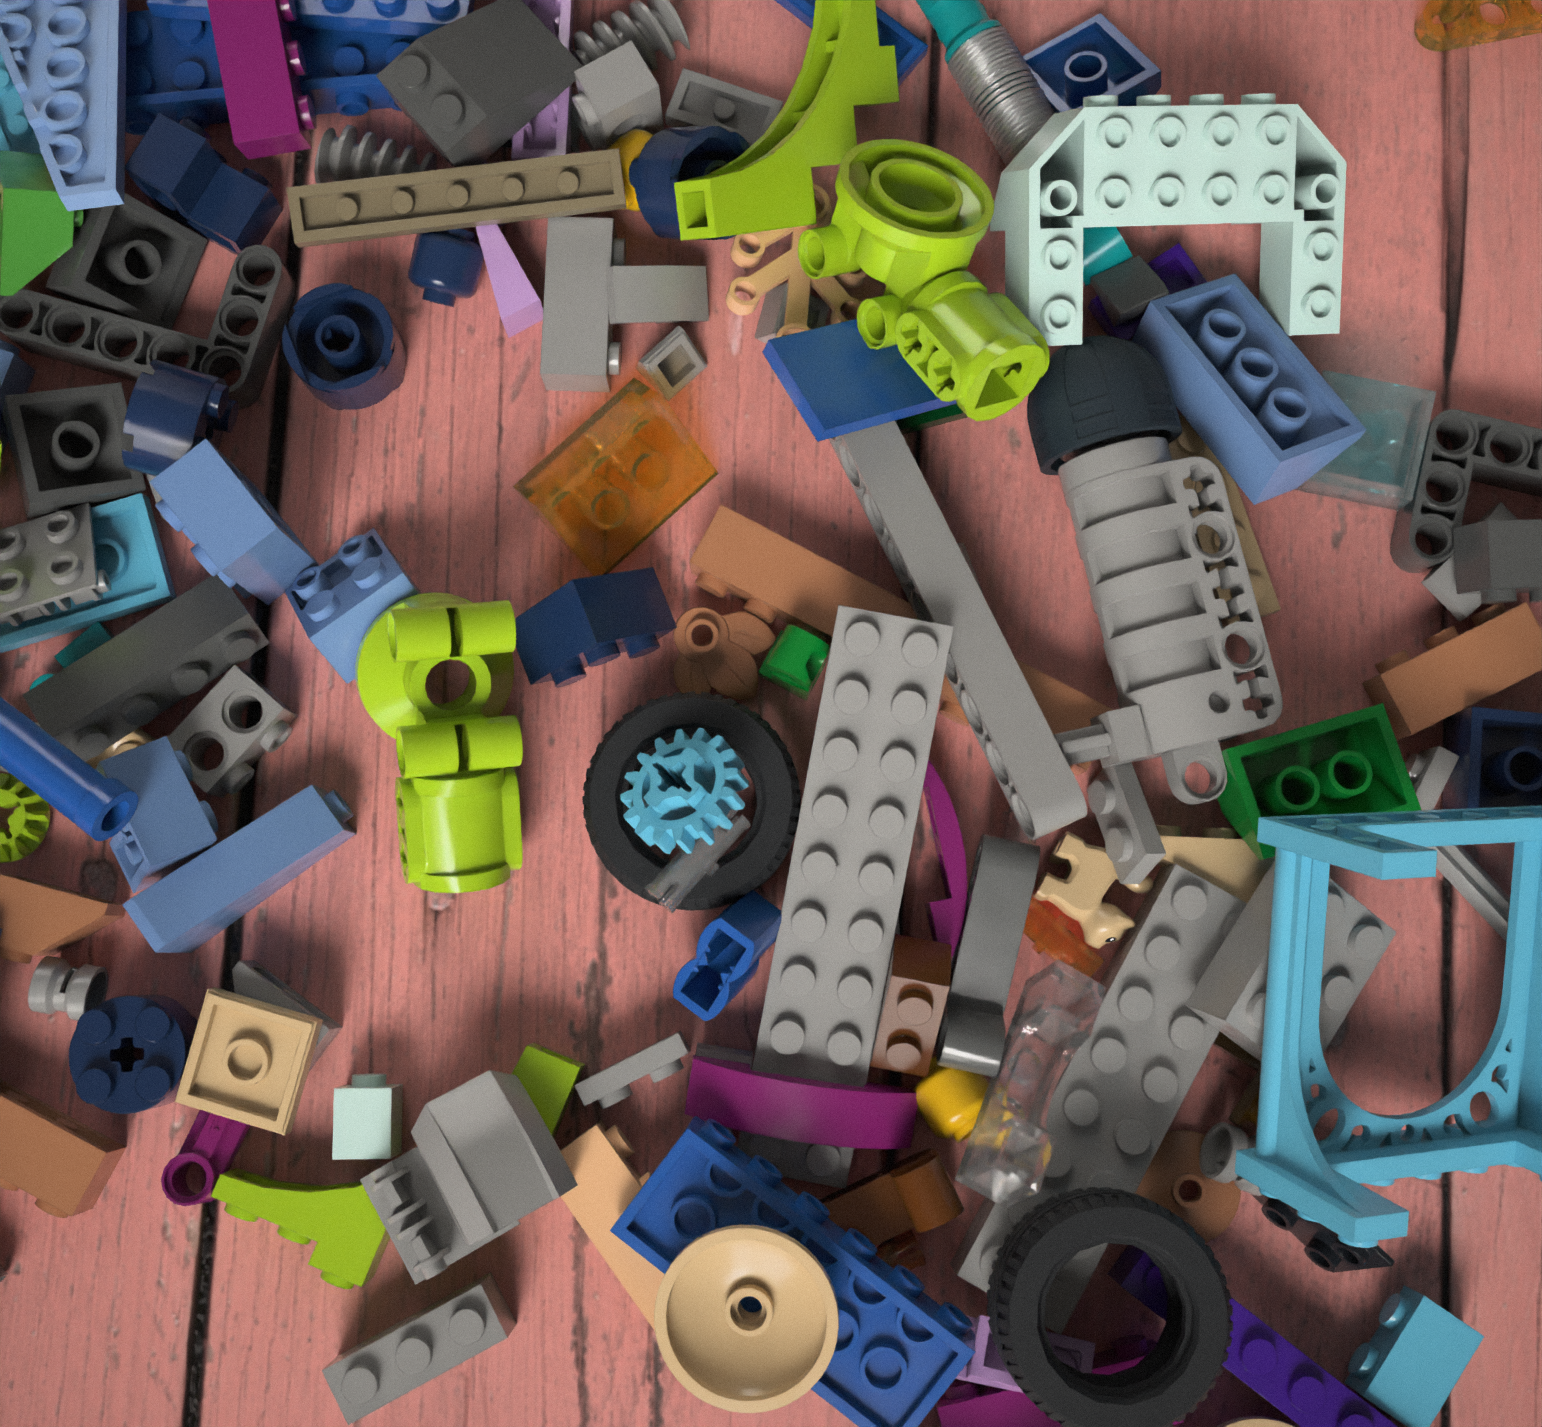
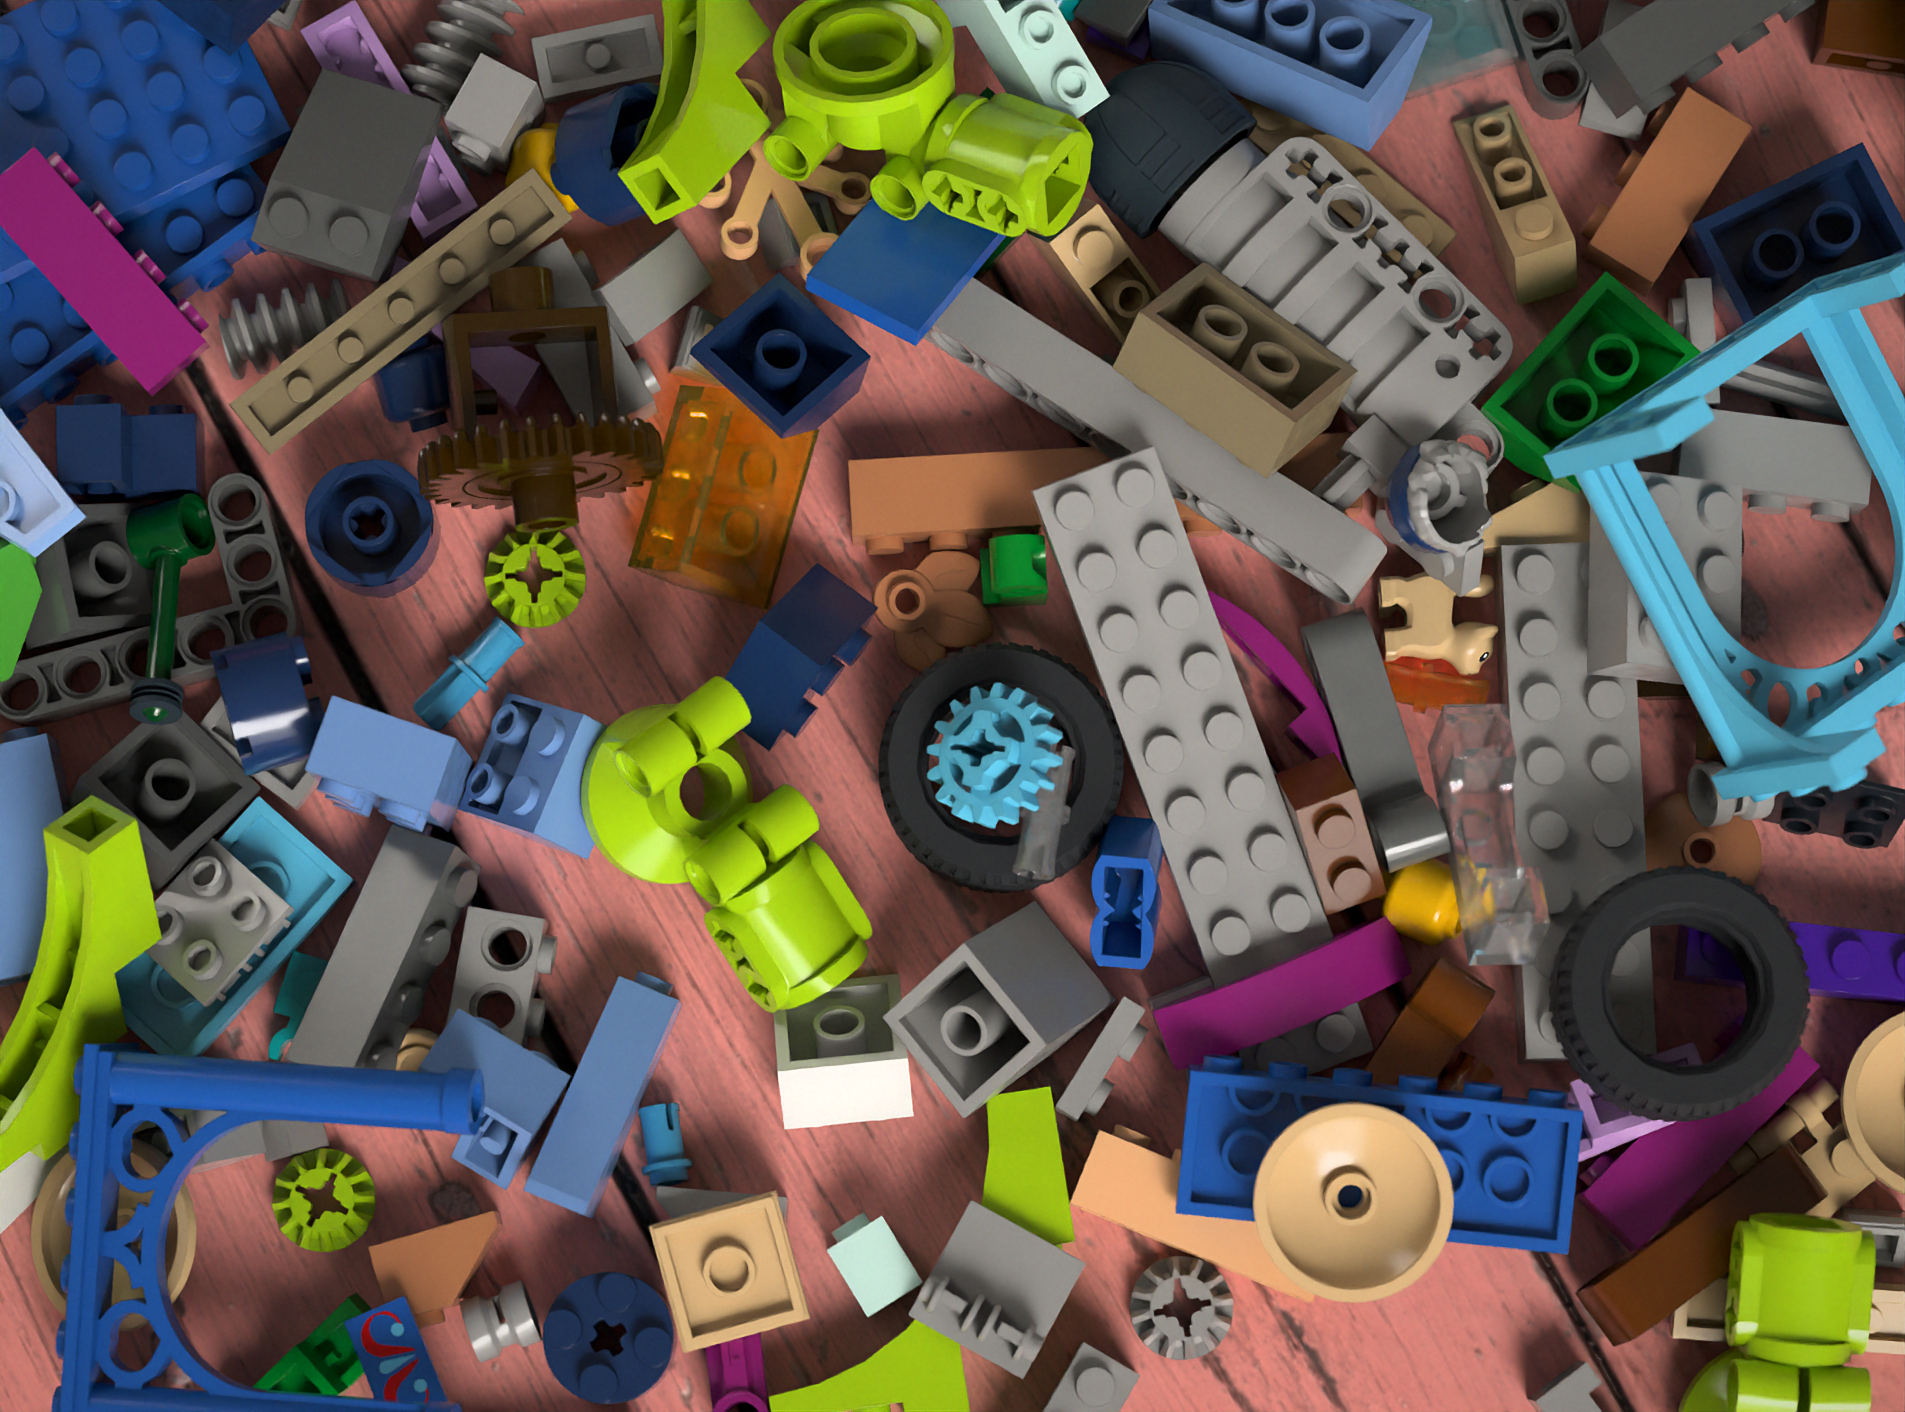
camera: 30 degrees left, 0 degrees up
(191, 267) = (164, 540): none -> dark green piece
(272, 931) = (664, 1145): none -> dark azure pin
(351, 497) = (467, 674): none -> dark azure axle
(444, 947) = (842, 1057): none -> white slope
(450, 479) = (557, 596): none -> lime gear
(479, 365) = (535, 468): none -> dark brown piece
(490, 1154) = (1018, 1212): light grey slope -> none
(553, 1305) = (1156, 1289): none -> light grey gear
(576, 983) = (998, 1008): none -> light grey slope
(718, 401) = (784, 359): none -> dark blue slope
(999, 500) = (1099, 270): none -> tan slope
(1051, 606) = (1234, 369): none -> dark tan brick
(1152, 799) = (1439, 497): none -> light grey hair
(1339, 617) = (1517, 206): none -> tan slope
(1433, 935) = (1780, 463): none -> light grey brick

